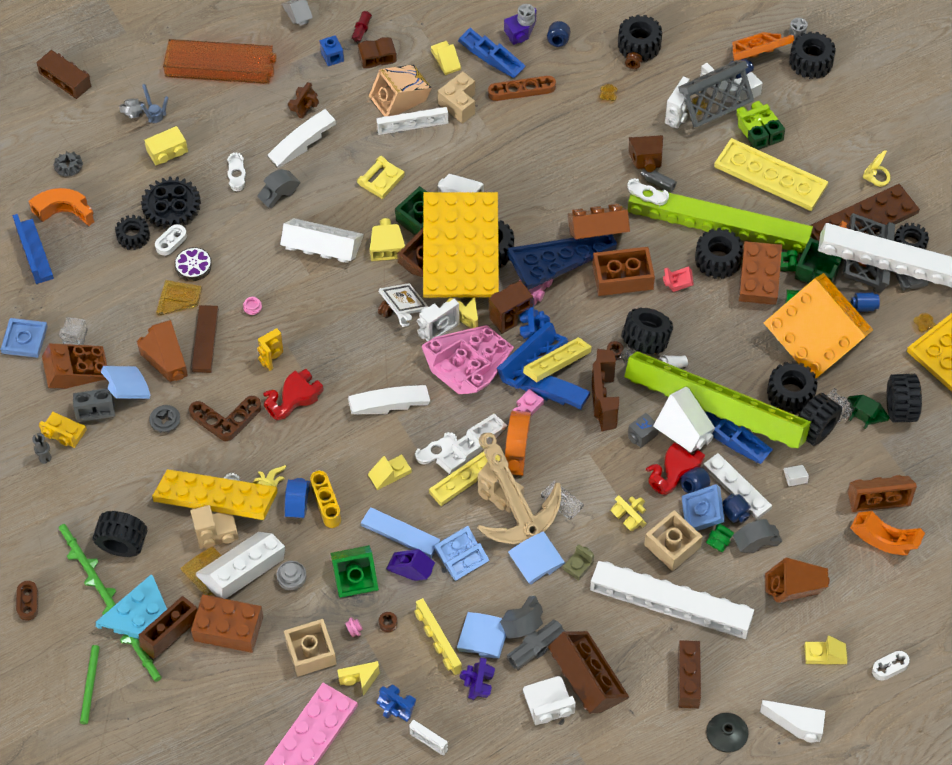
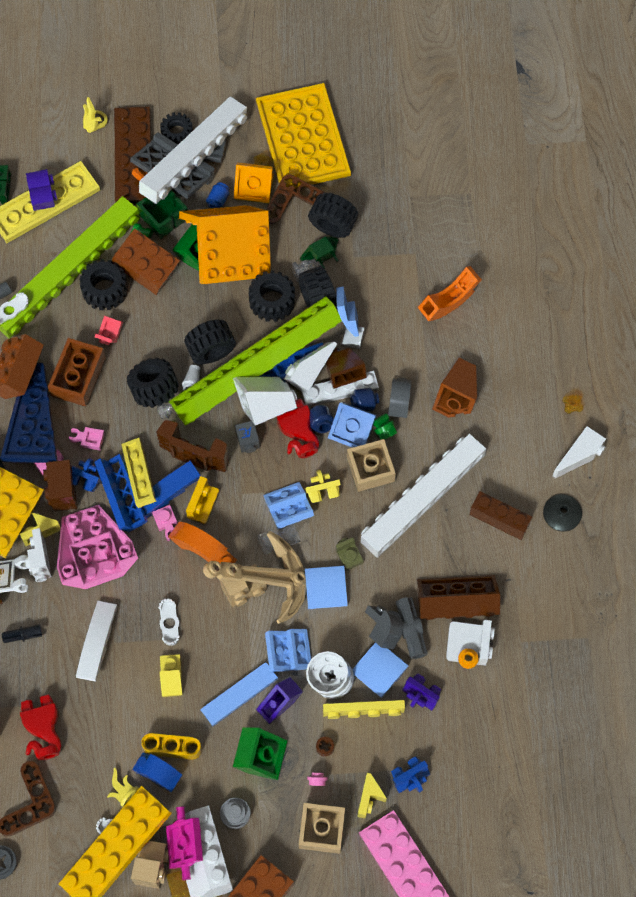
camera: 65 degrees left, 10 degrees up
(236, 544) = (184, 843): none -> dark pink plate
(366, 343) = (22, 634): none -> black axle
(428, 737) = (458, 762): white tile -> none
(452, 592) = (329, 664): none -> white wheel
(459, 480) = (213, 611): light yellow plate -> none
(469, 446) = (181, 589): white slope -> none
(530, 697) = (468, 664): none -> light orange plate
(560, 420) = (202, 501): none -> yellow bracket
(569, 311) = (90, 438): none -> bright pink plate
(597, 493) = (288, 505): none -> light blue slope
(616, 345) = (147, 416): reddish brown bush -> none
(712, 355) = (210, 341): none -> black tyre
(732, 443) = (305, 371): none -> white slope
(755, 475) = (345, 367): none -> reddish brown torso
(776, 163) = (40, 189): none -> dark purple brick
(811, 452) = (347, 311): none -> light blue slope
(826, 652) = (528, 400): light yellow slope -> none
(845, 688) = (576, 399): none -> clear yellow plate
(881, 493) = (407, 279): dark orange slope -> none
(888, 661) = (568, 357): white beam -> none
(897, 322) = (253, 182): none -> light orange bracket
(905, 354) = (288, 192): none -> reddish brown beam

